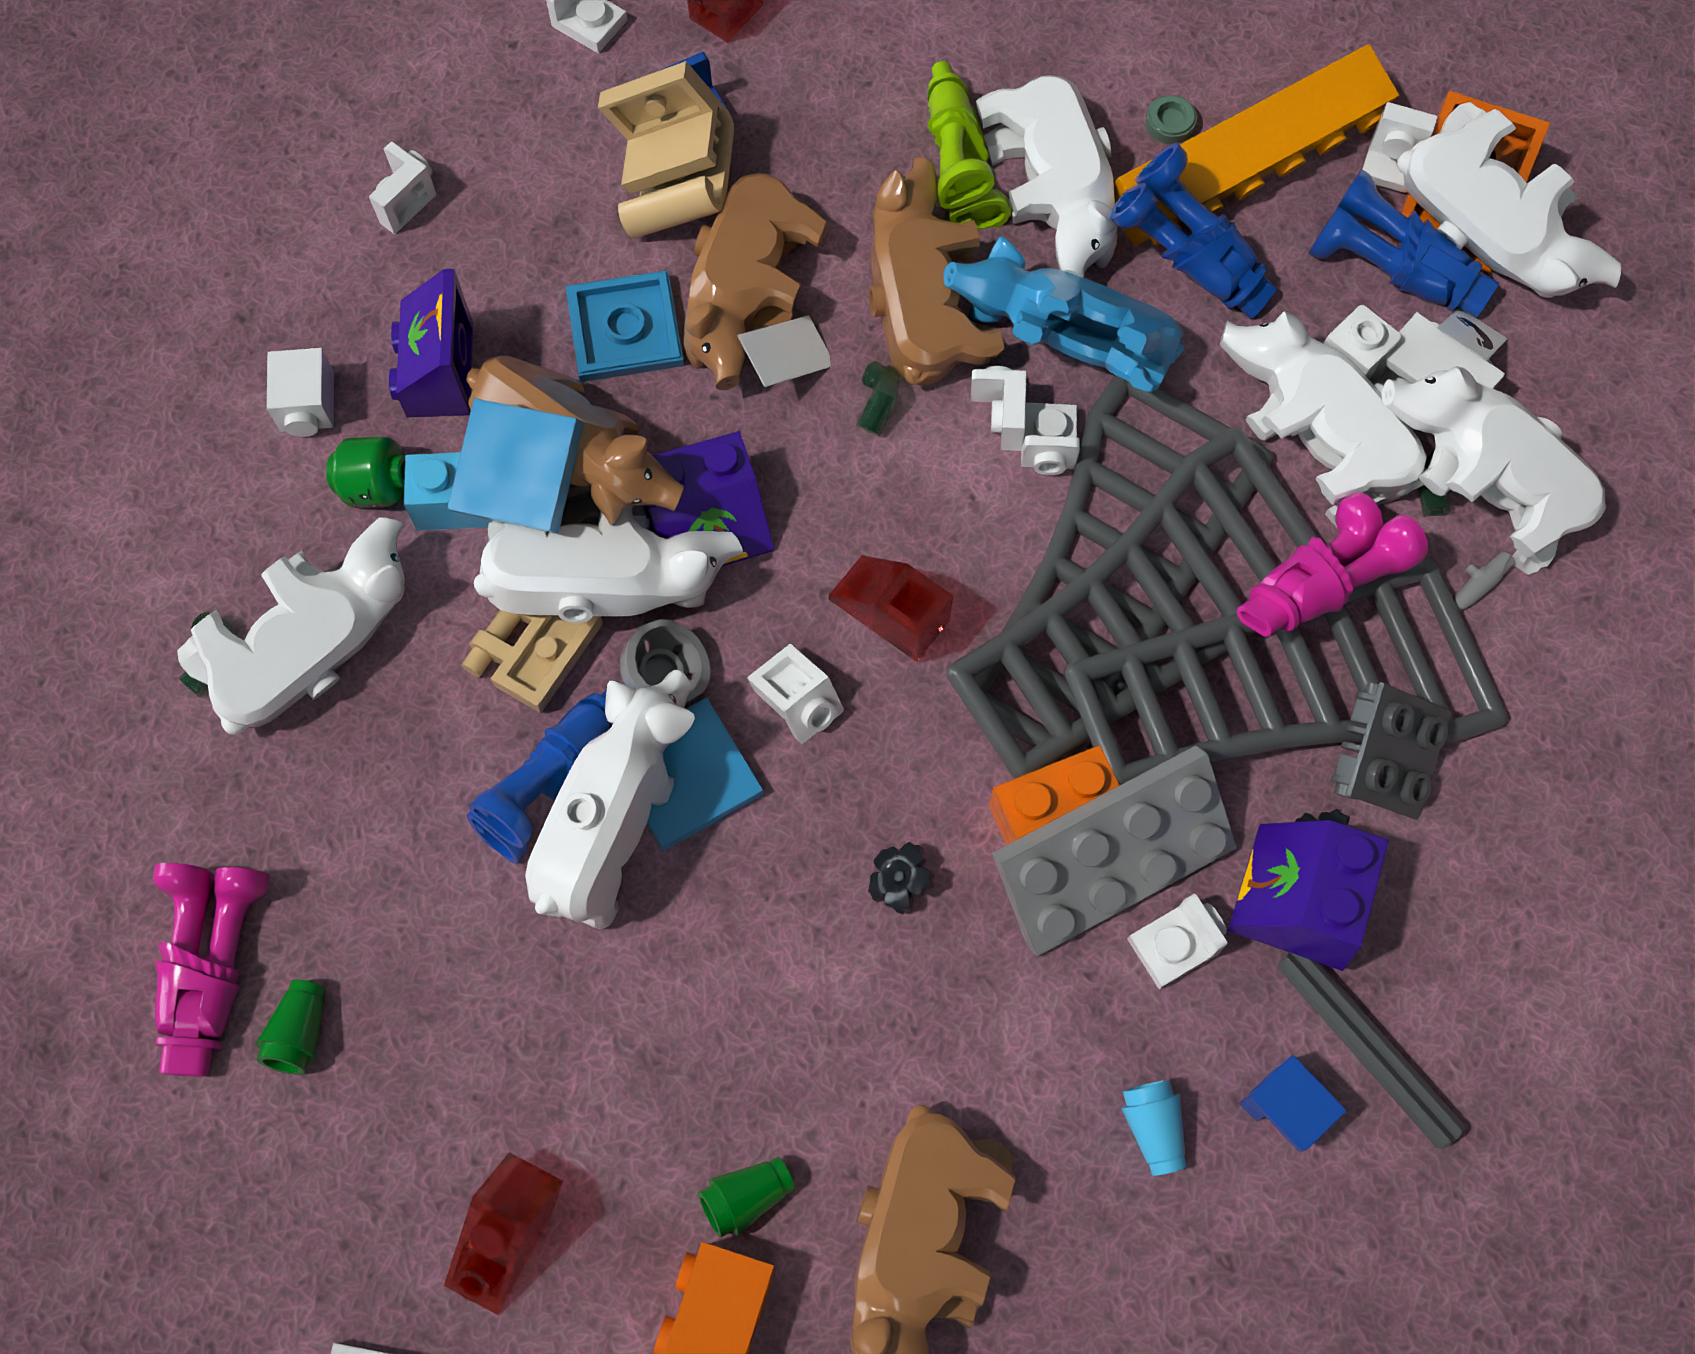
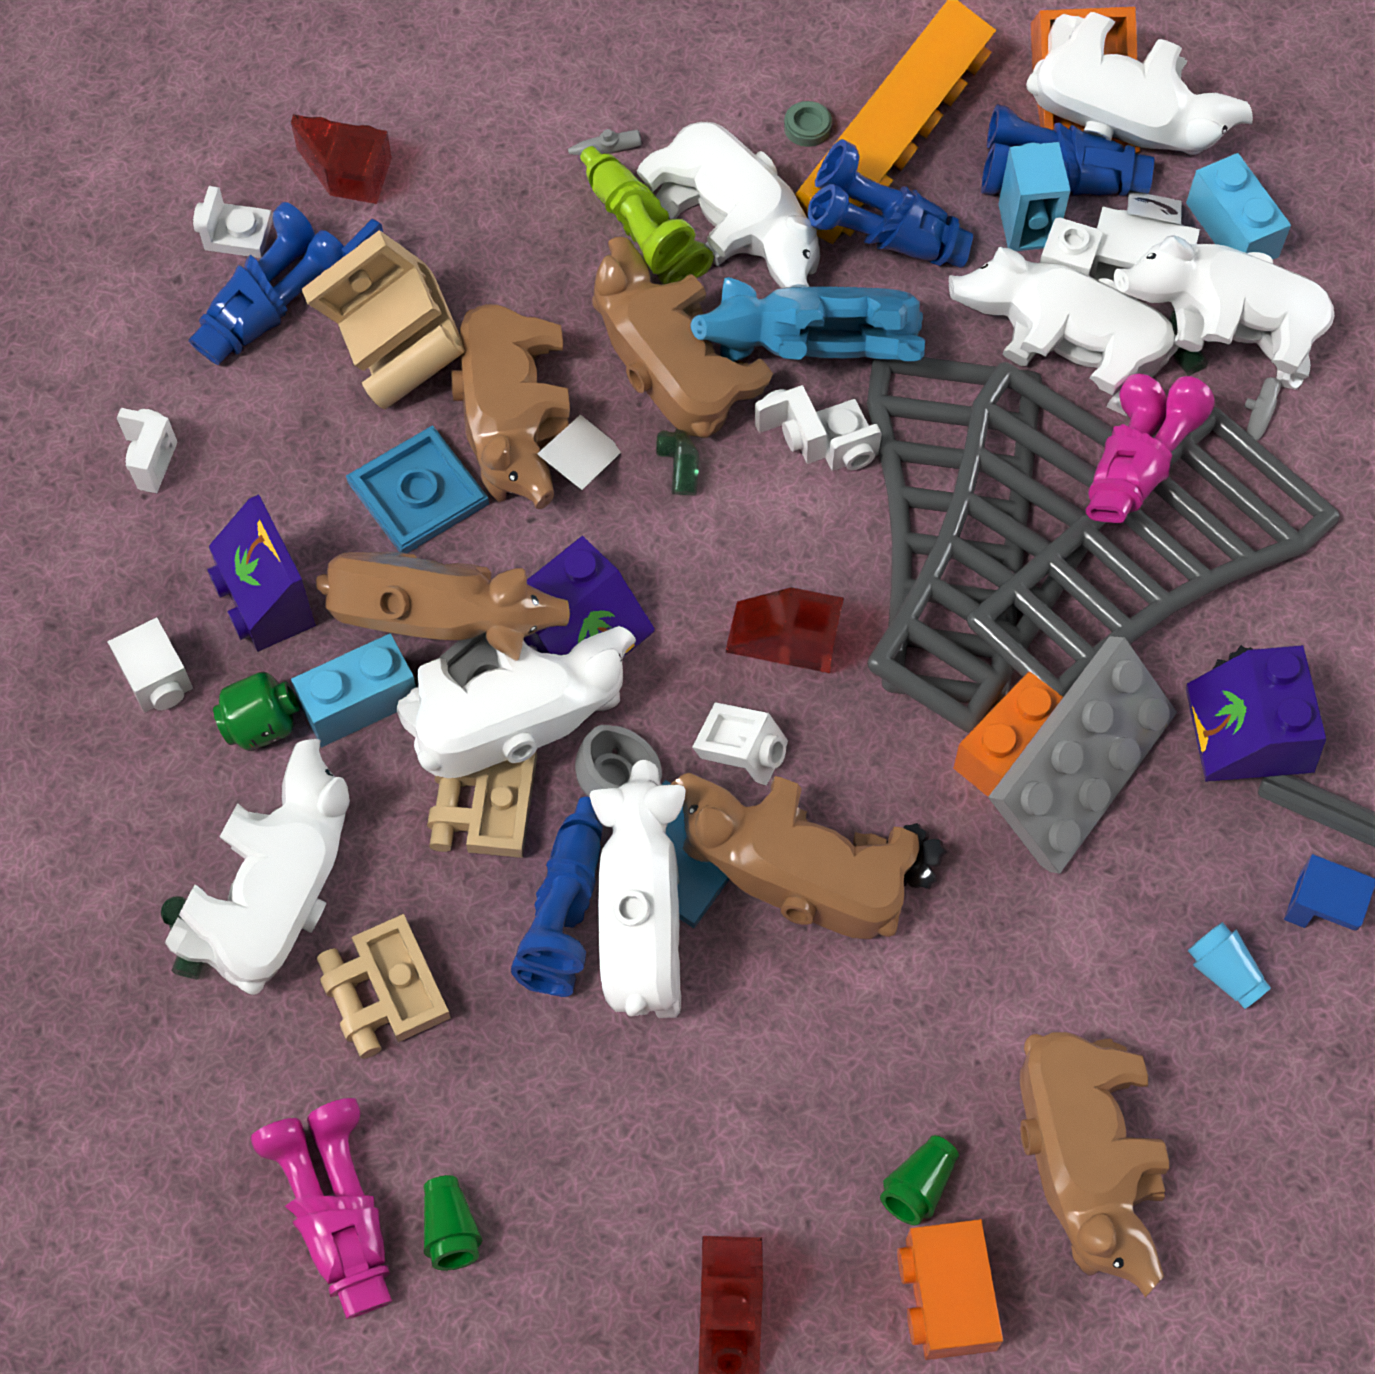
camera: 25 degrees left, 5 degrees down
(368, 778) = (399, 977): none -> tan plate
(516, 465) = (413, 641): dark azure tile -> none
(561, 88) = (249, 302): none -> blue piece
(780, 836) = (799, 863): none -> medium nougat animal
(972, 66) = (609, 142): none -> light grey helmet
(1179, 940) = (1171, 807): white bracket -> none
(1351, 270) = (1032, 194): none -> medium azure brick
(1395, 752) = (1270, 573): dark grey hinge -> none
(1396, 132) = (1009, 69): white bracket -> none
(1557, 369) = (1237, 208): none -> medium azure brick

